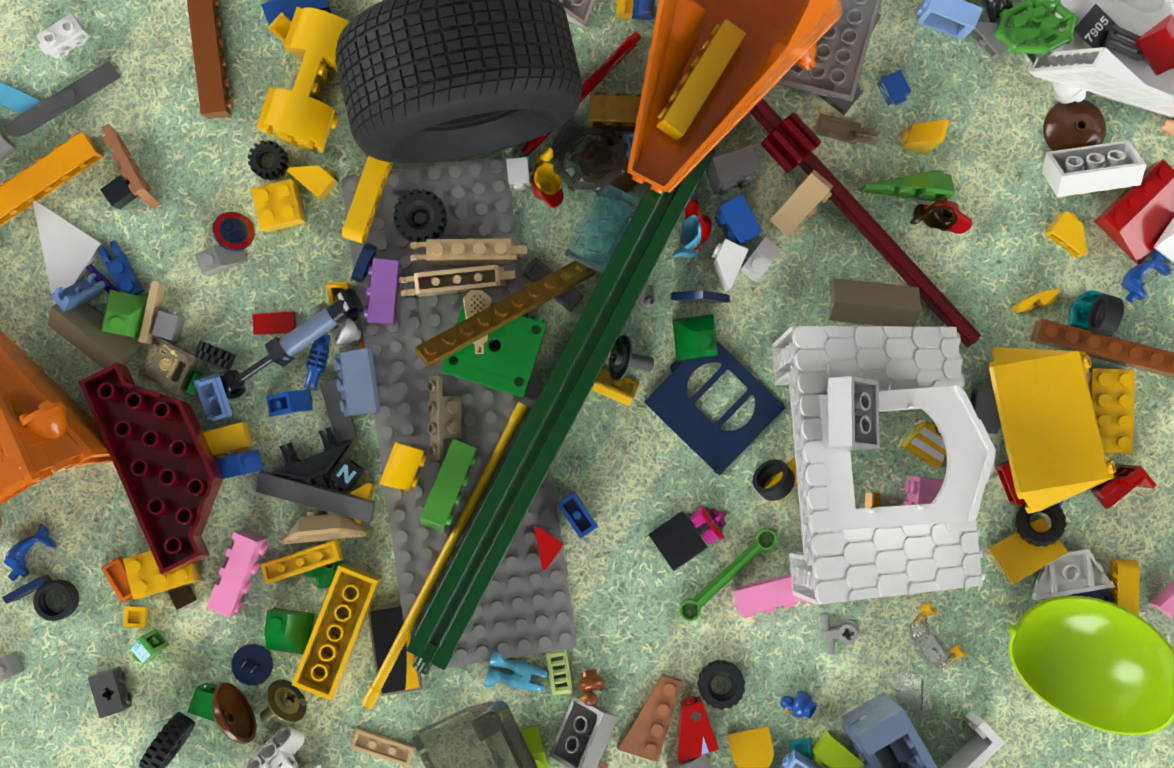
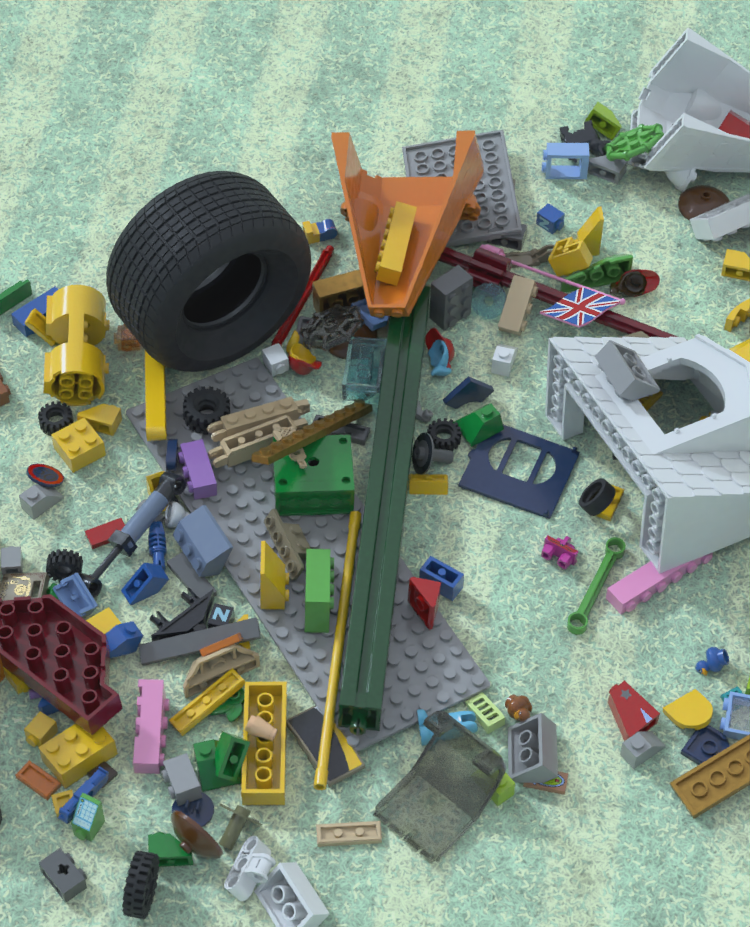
camera: 25 degrees left, 35 degrees down
(132, 534) = (40, 730): none -> yellow brick
(150, 623) = (89, 787): none -> blue piece
(248, 637) = (182, 779): none -> light grey brick
(295, 641) = (230, 756): none -> green slope
(328, 518) = (221, 644): none -> orange tile
(330, 629) = (260, 728): none -> light nougat cone
(645, 345) = (445, 427): none -> black tyre
(651, 725) = (590, 724): nougat wing -> none
(678, 541) = (540, 574): black slope -> none
(728, 262) = (478, 359): white slope -> none
(730, 698) = (639, 655): black tyre -> none
(737, 221) = (473, 333): blue brick -> none
(783, 174) = (478, 300): none -> clear light blue tile
(830, 633) = (709, 598): light grey piece -> none
(869, 233) = (577, 307): none -> flag
(887, 158) = (569, 257): none -> yellow brick

